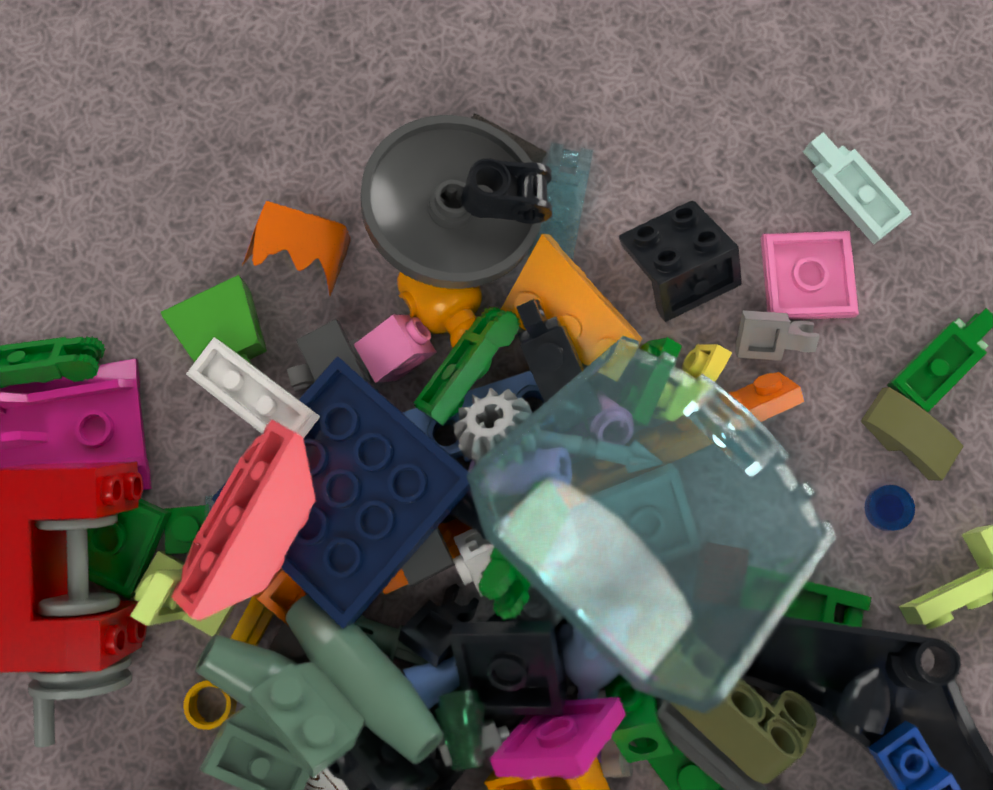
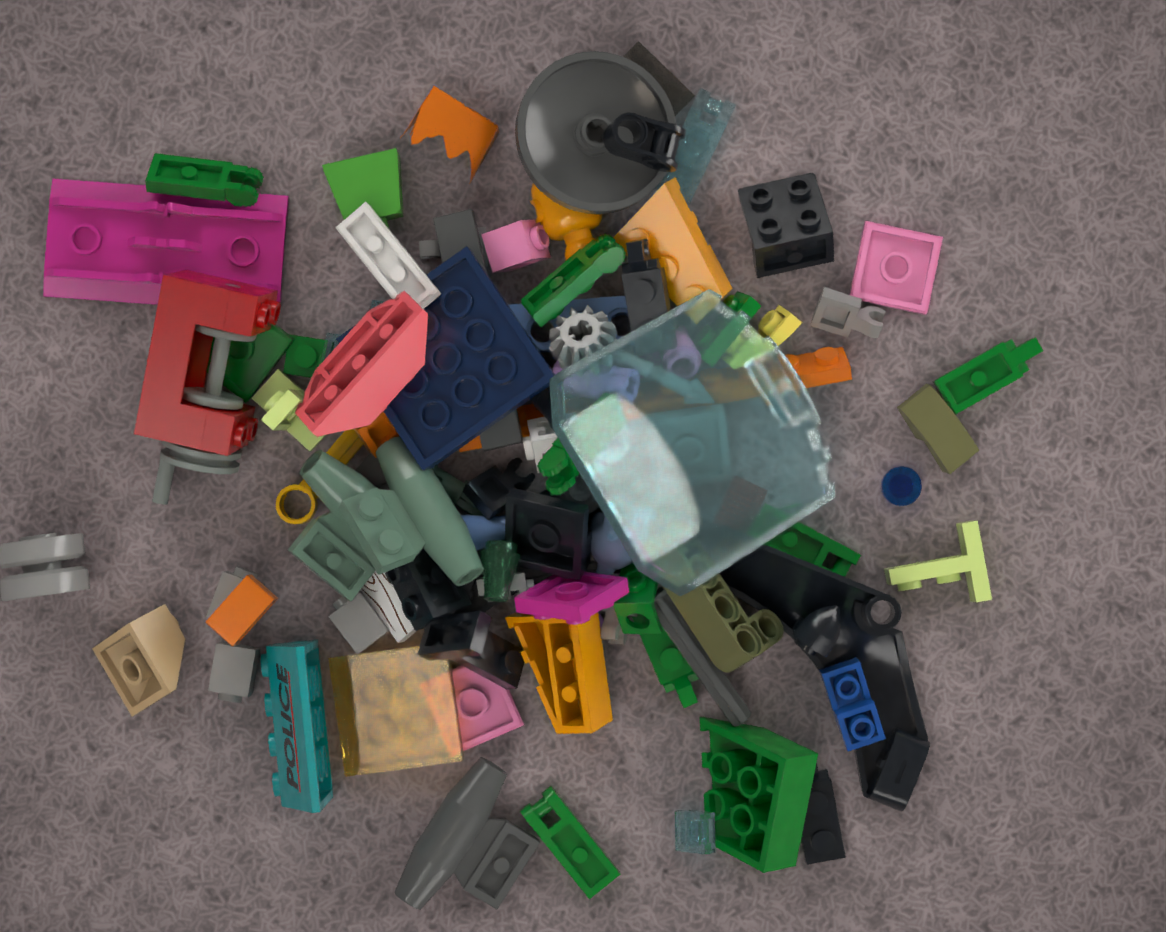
camera: 10 degrees right, 10 degrees up
(856, 188) = (960, 200): light aqua hinge -> none

